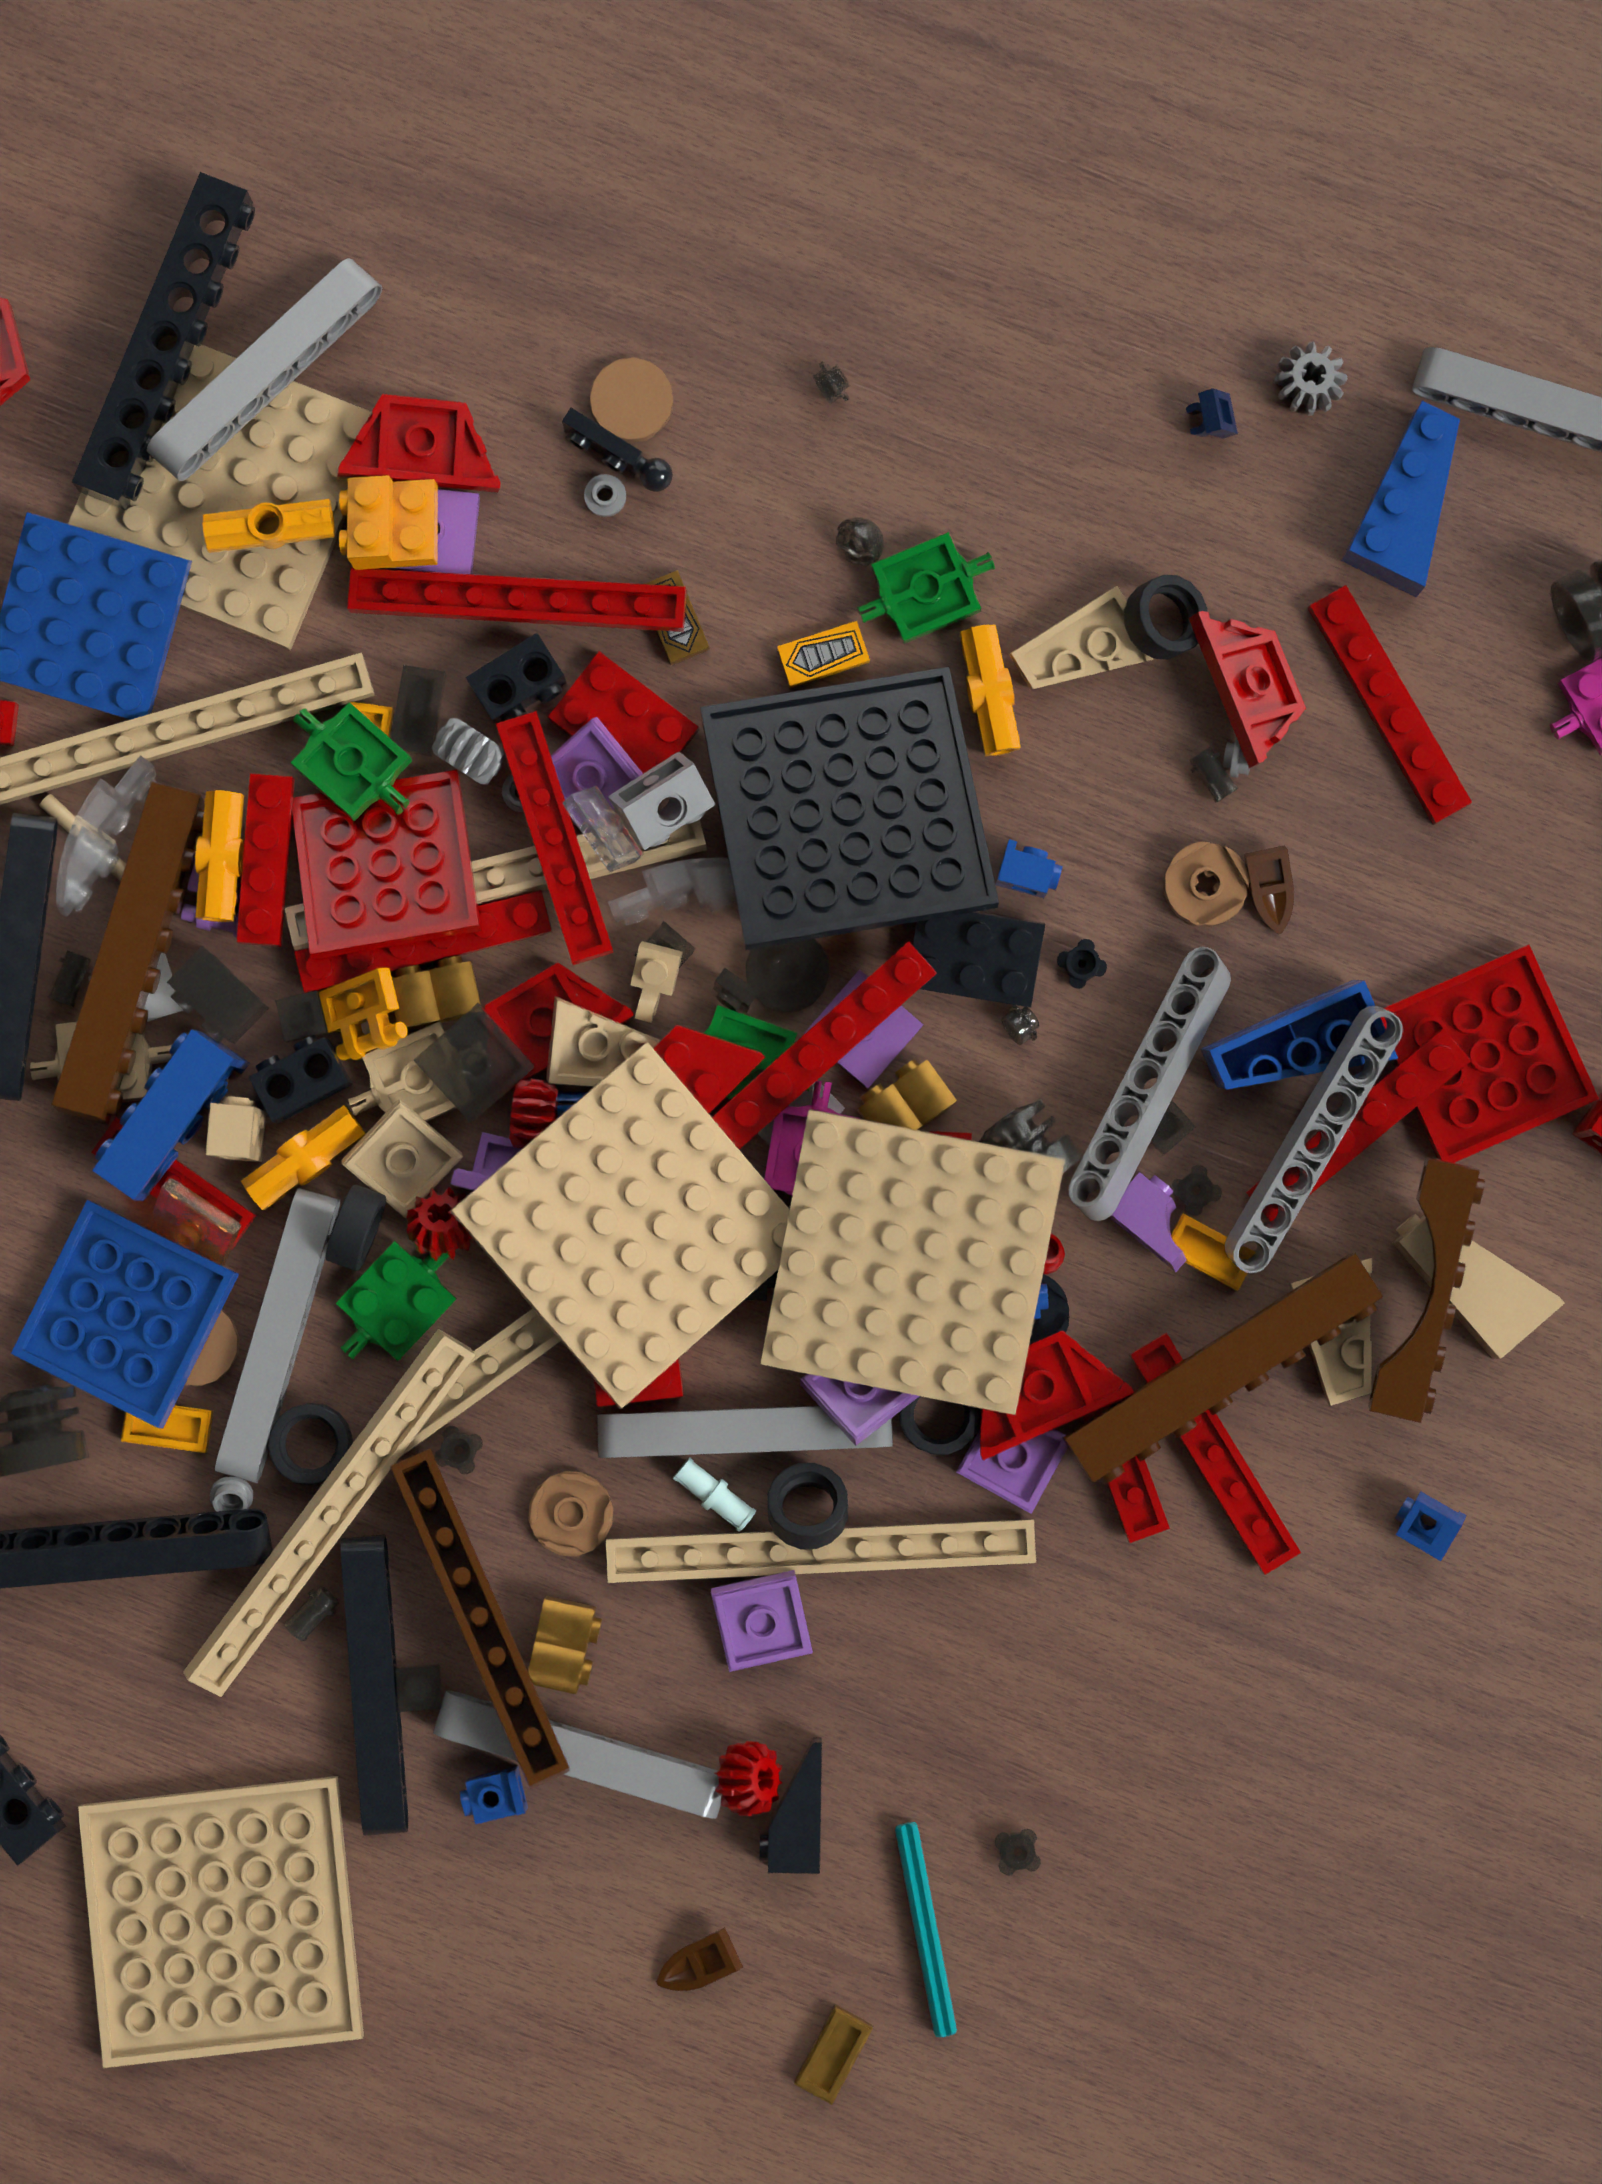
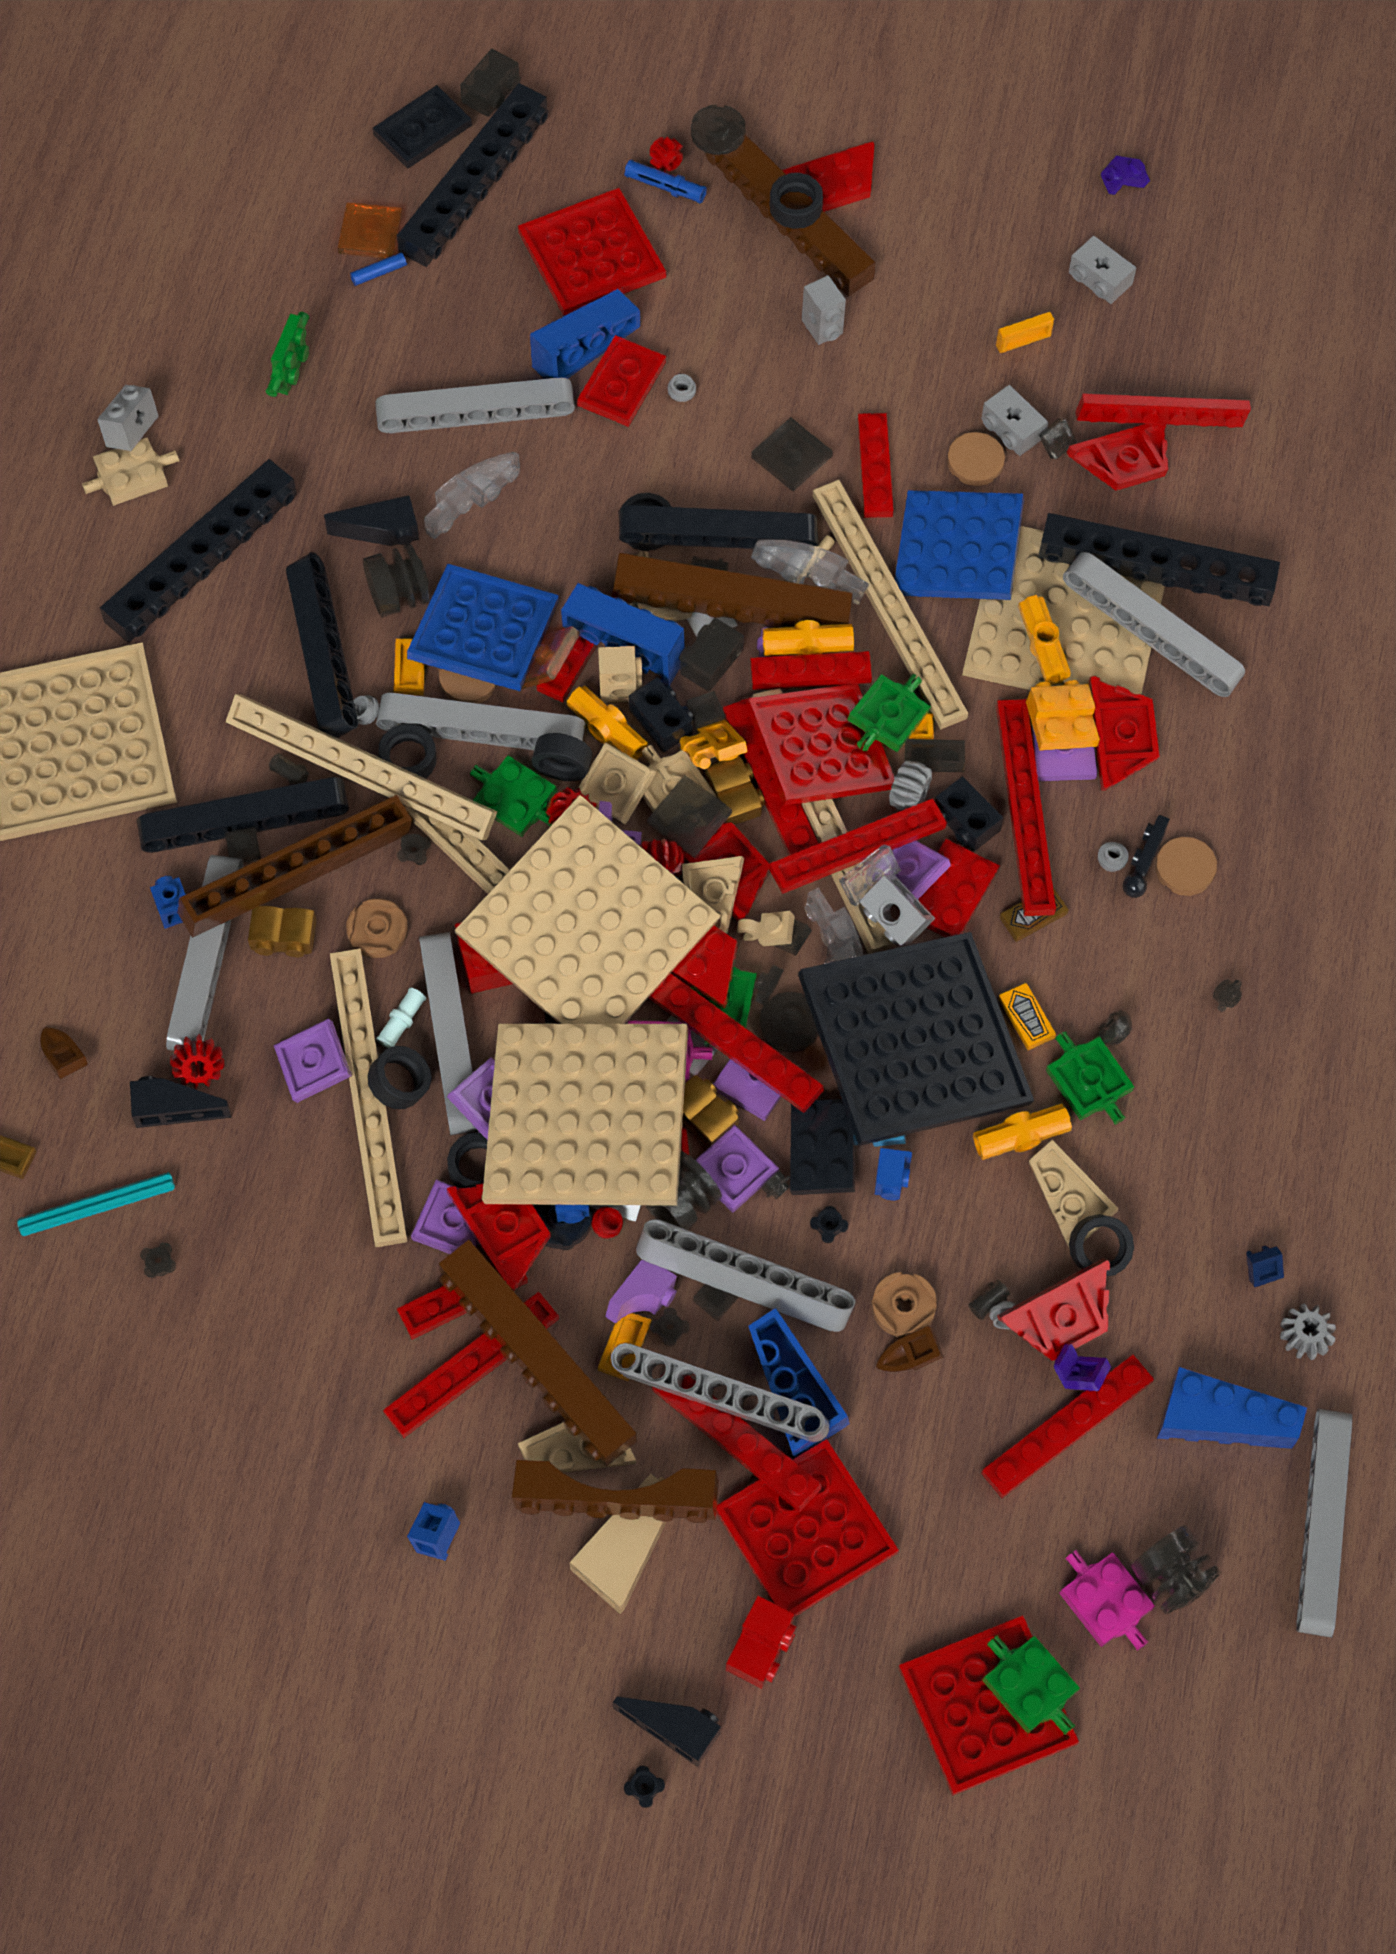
camera: 85 degrees right, 20 degrees down
(990, 1076) = (737, 1167): none -> medium lavender plate
(1327, 674) = (1079, 1371): none -> dark purple bracket

